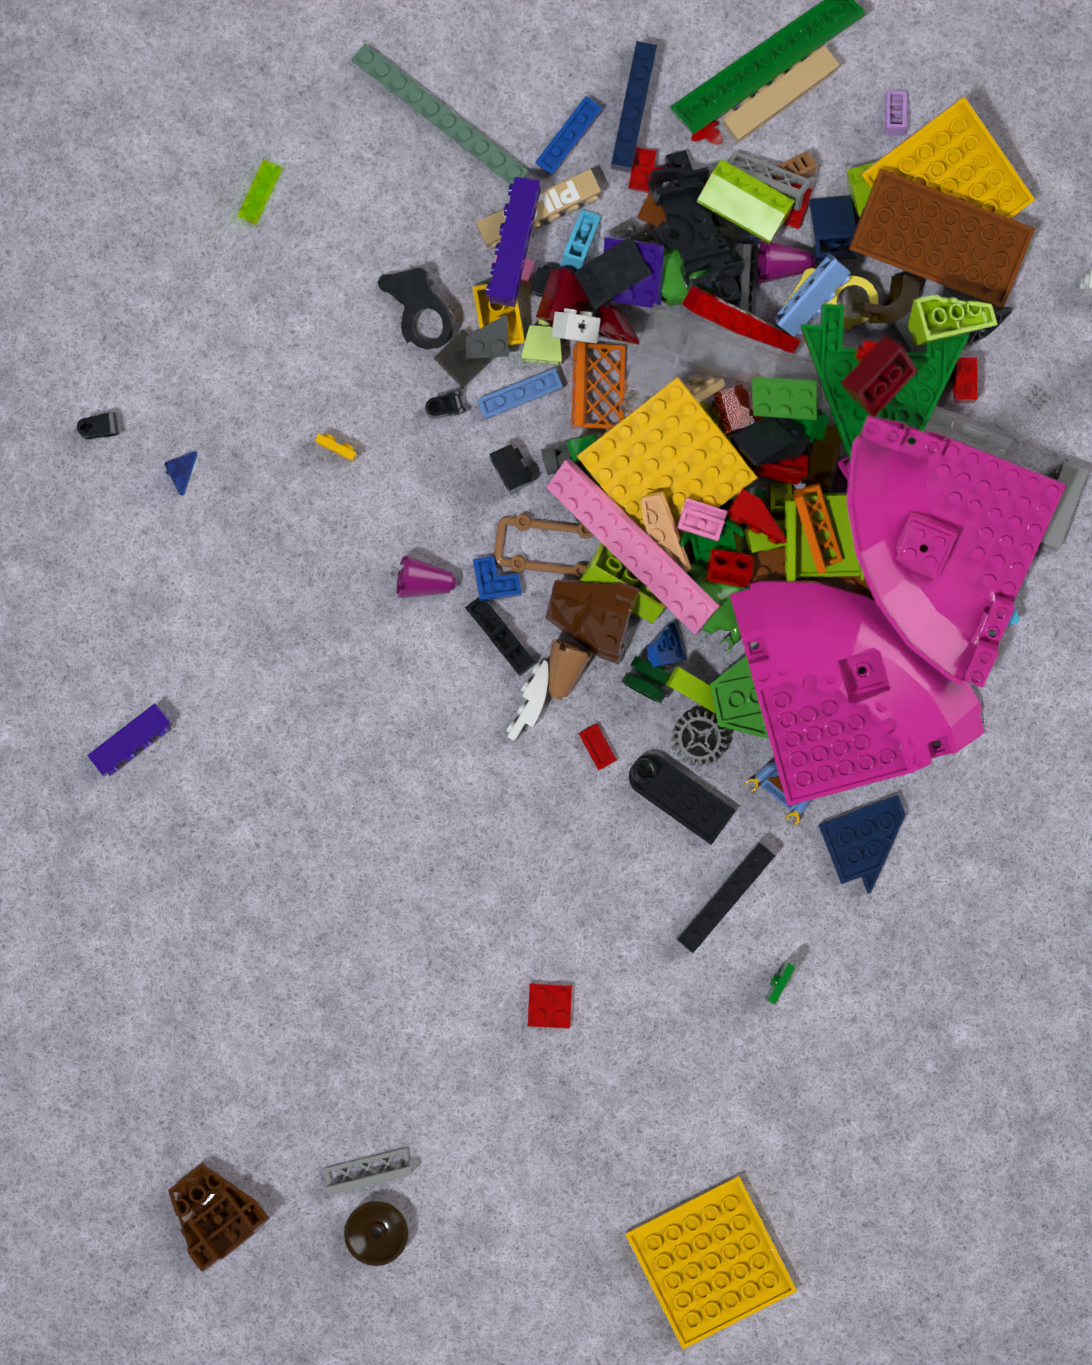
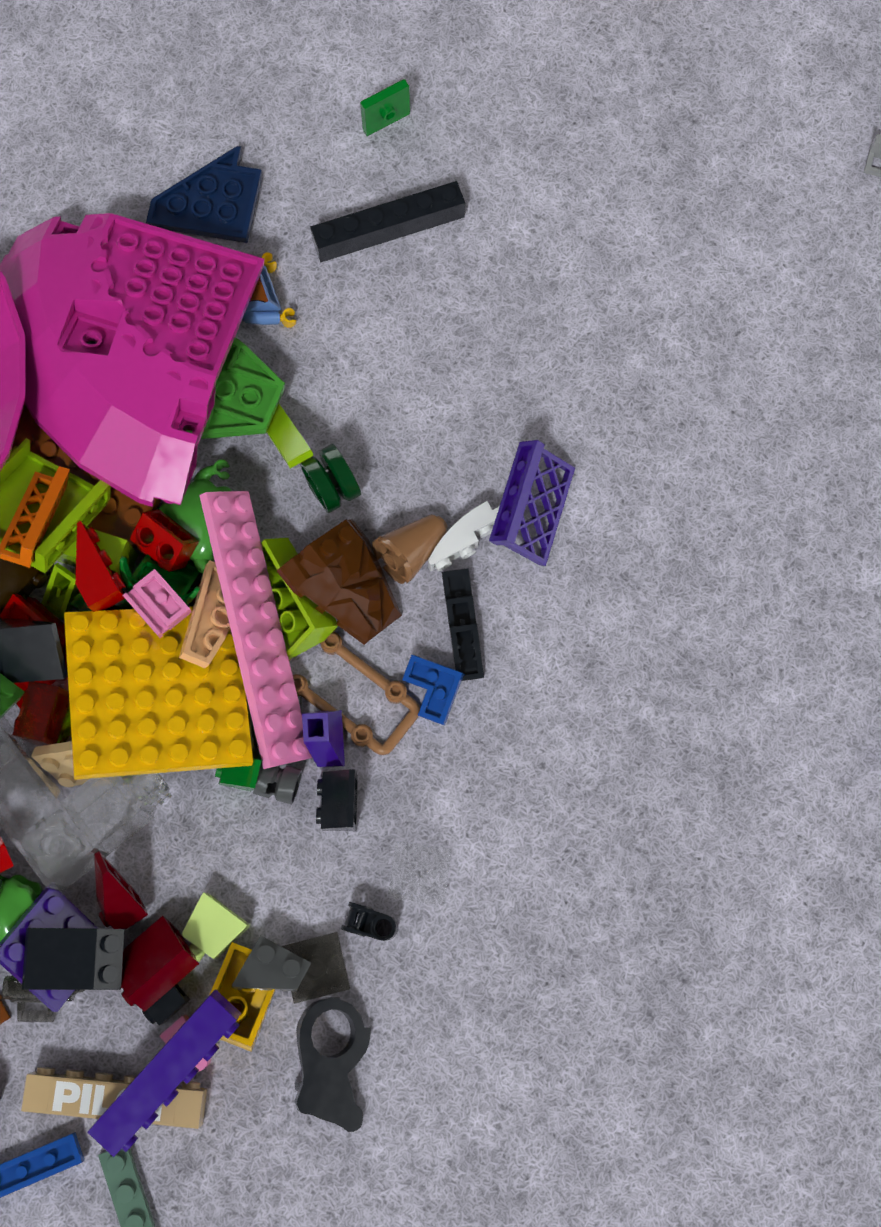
camera: 150 degrees left, 10 degrees down
(102, 426) = (797, 1149): black piece -> none
(180, 470) = (727, 1033): clear blue piece -> none
(328, 442) = (531, 961): yellow plate -> none
(422, 579) = (514, 734): magenta cone -> none
(512, 742) = (519, 494): none -> dark purple fence
(519, 393) = (275, 885): medium blue plate -> none
(545, 505) = (324, 737): none -> dark purple slope
(549, 1005) = (635, 222): red plate -> none
(576, 327) = (160, 921): white brick -> none
(580, 241) = (92, 1027): medium azure slope -> none
(580, 381) = (198, 857): orange fence -> none
(597, 747) = (428, 448): red tile -> none
(666, 646) = (286, 499): blue wing -> none
(680, 797) = (372, 347): black plate -> none
(684, 749) = (338, 389): light grey gear -> none

